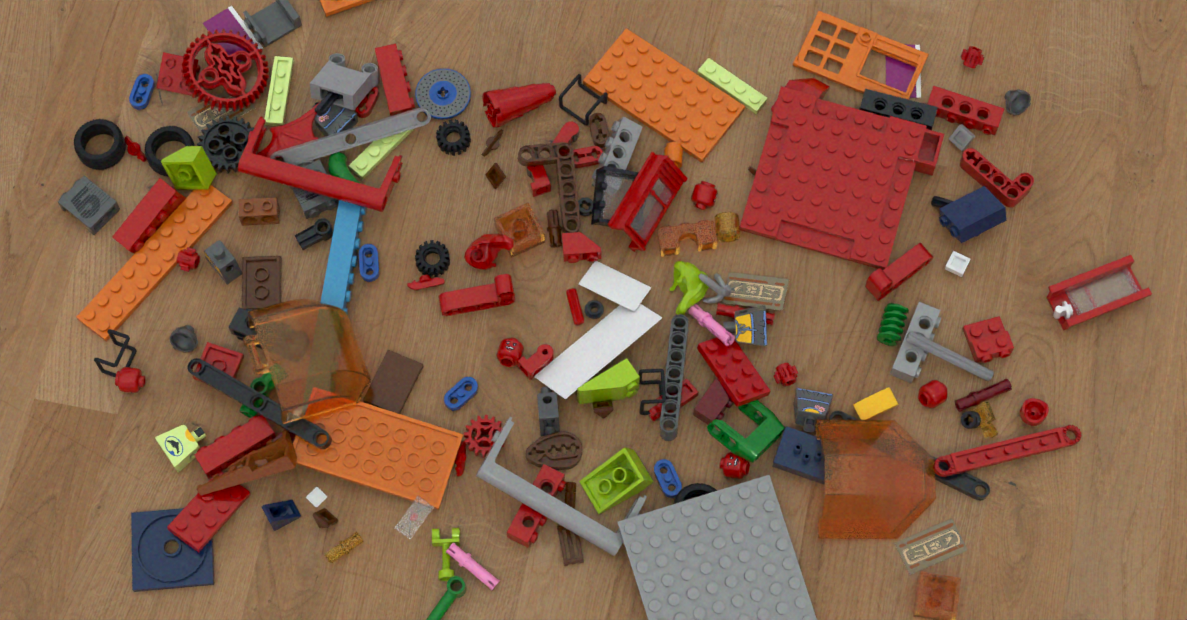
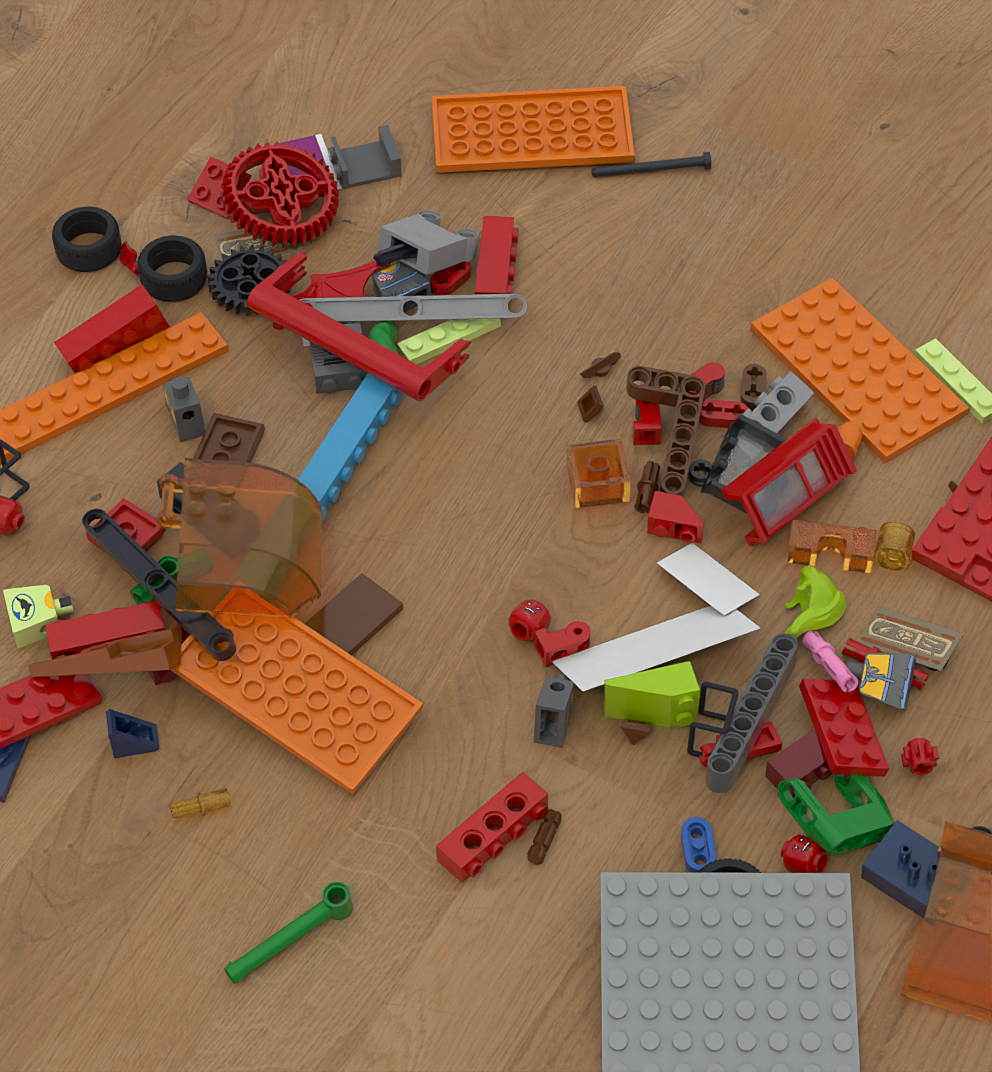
camera: 20 degrees right, 15 degrees down
(89, 204) = (43, 303): dark grey panel -> none
(141, 93) = (166, 196): blue plate -> none
(184, 339) = (94, 486): dark grey piece -> none
(188, 259) = (141, 395): red gear -> none
(189, 168) = (186, 288): lime slope -> none
(259, 211) = (257, 364): dark orange brick -> none
(278, 91) = (340, 237): yellowish green plate -> none
(313, 235) = (325, 408): black piece -> none
(316, 497) = (190, 731): white sticker -> none
(324, 518) = (188, 759): reddish brown slope -> none
(369, 264) = (376, 464): blue plate -> none
(414, 517) = (313, 792): clear tile -> none
(424, 282) = (445, 505): red piece -> none
(429, 248) = (466, 467): black tyre -> none
(446, 573) = (344, 840): lime bar -> none
(456, 93) = (573, 295): piece -> none
(456, 146) = (550, 356): black tyre -> none
(458, 392) = (439, 654): blue plate -> none
(460, 459) = (409, 738): red piece -> none
(472, 566) = (364, 869): bright pink pin -> none
(479, 297) = (512, 542): red beam -> none
(480, 441) = (455, 713): red gear -> none
(485, 250) = (542, 485): red piece -> none
(513, 102) = (648, 322): red cone -> none
(547, 504) = (505, 818): light grey piece -> none
(555, 440) = (554, 752): reddish brown piece -> none
(573, 560) = (521, 917): reddish brown tile -> none
(575, 306) = (642, 590): red axle -> none
(594, 304) = (668, 594): black plate -> none
(604, 99) = (761, 346): black piece -> none
(616, 480) = (622, 826): lime slope -> none
(704, 195) = (874, 499): red head -> none
(720, 288) = (860, 620): light grey piece -> none
(811, 407) = (945, 803): dark grey torso -> none

